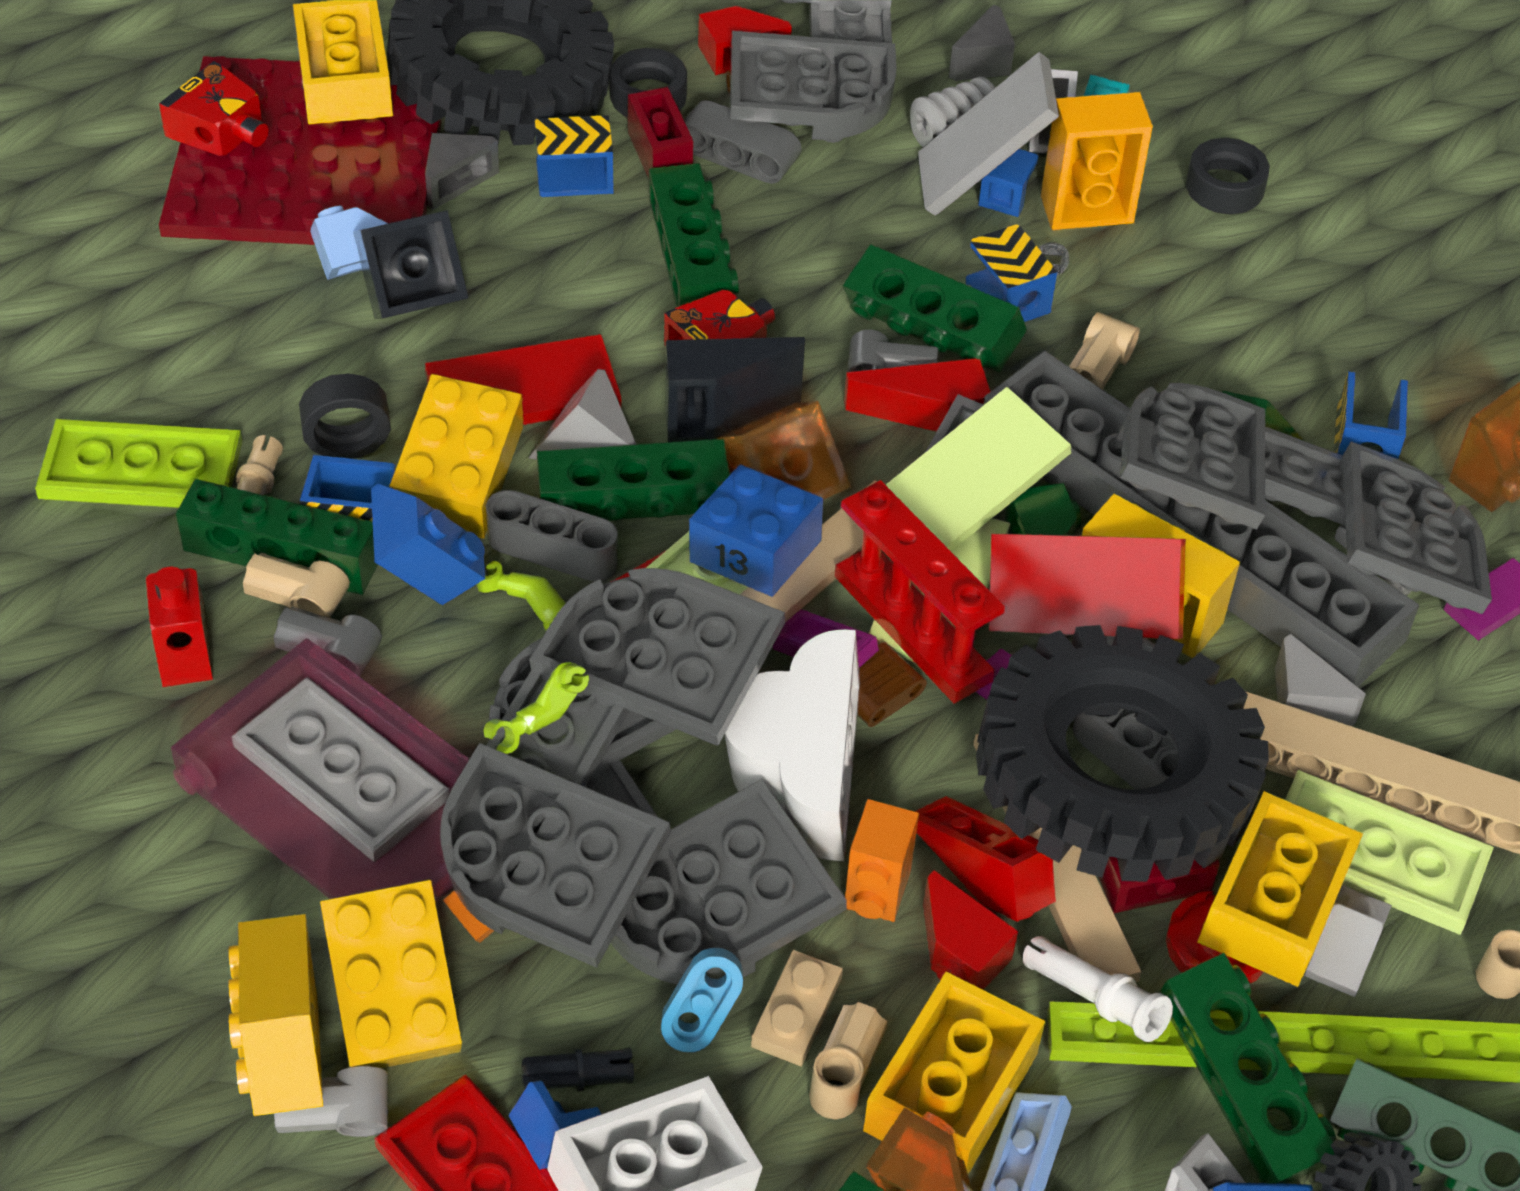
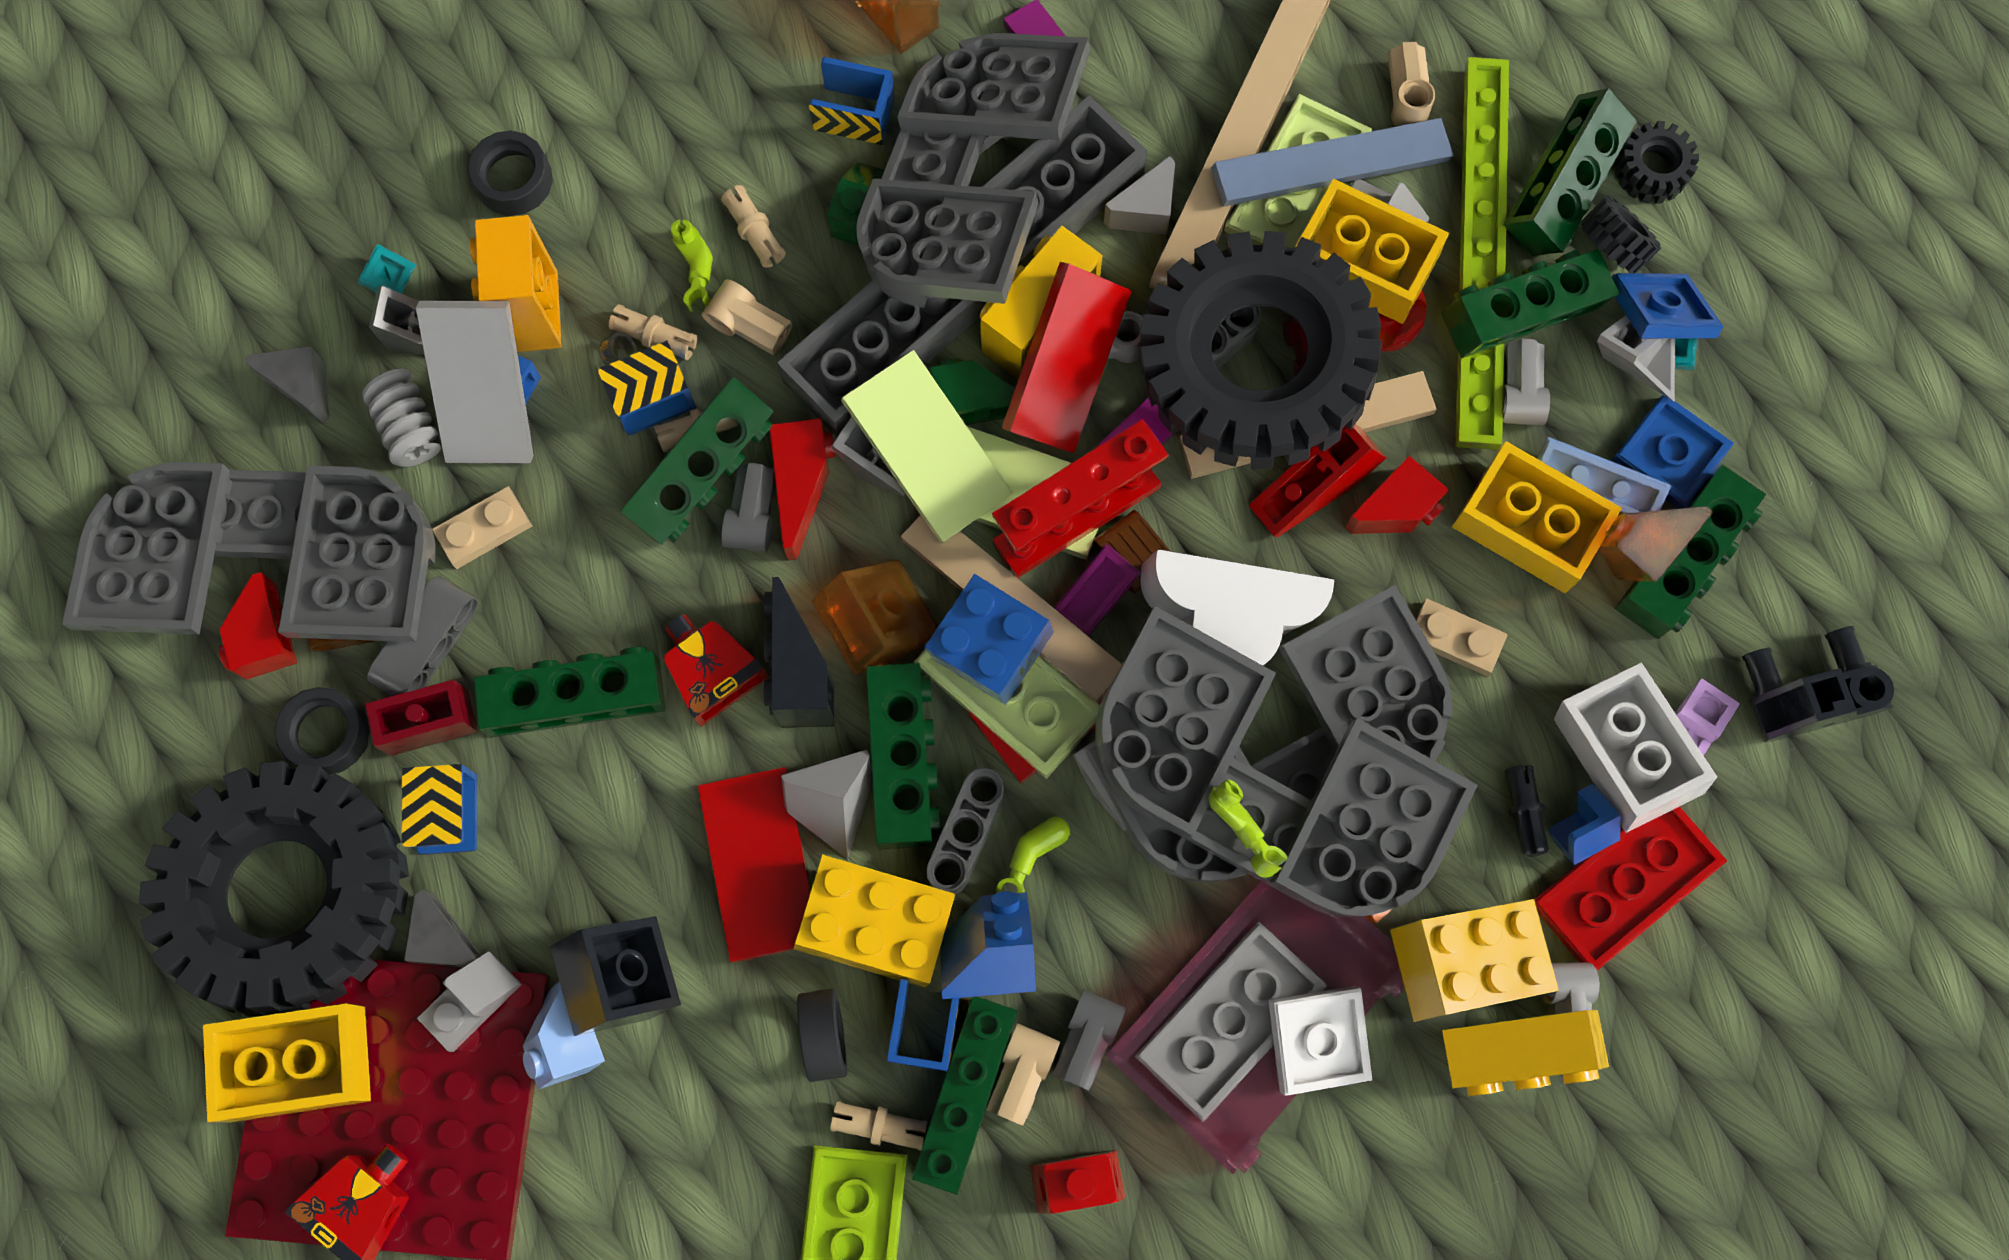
camera: 85 degrees left, 25 degrees up
(311, 844) = (1320, 1040): none -> white tile
(396, 176) = (468, 1000): none -> light grey slope
(703, 996) = (1475, 706): dark azure plate -> none
(846, 1060) = (1508, 599): tan piece -> none
(855, 180) = (482, 527): none -> tan plate
(880, 860) = (1348, 555): orange brick -> none
(1075, 287) = (652, 331): none -> tan pin
(1114, 995) = (1468, 388): white pin -> none
(1122, 1083) = (1523, 388): none -> light grey piece
(1166, 318) = (698, 257): none -> lime arm
(1209, 357) = (753, 226): none -> tan pin
(1404, 871) = (1339, 158): none -> sand blue tile

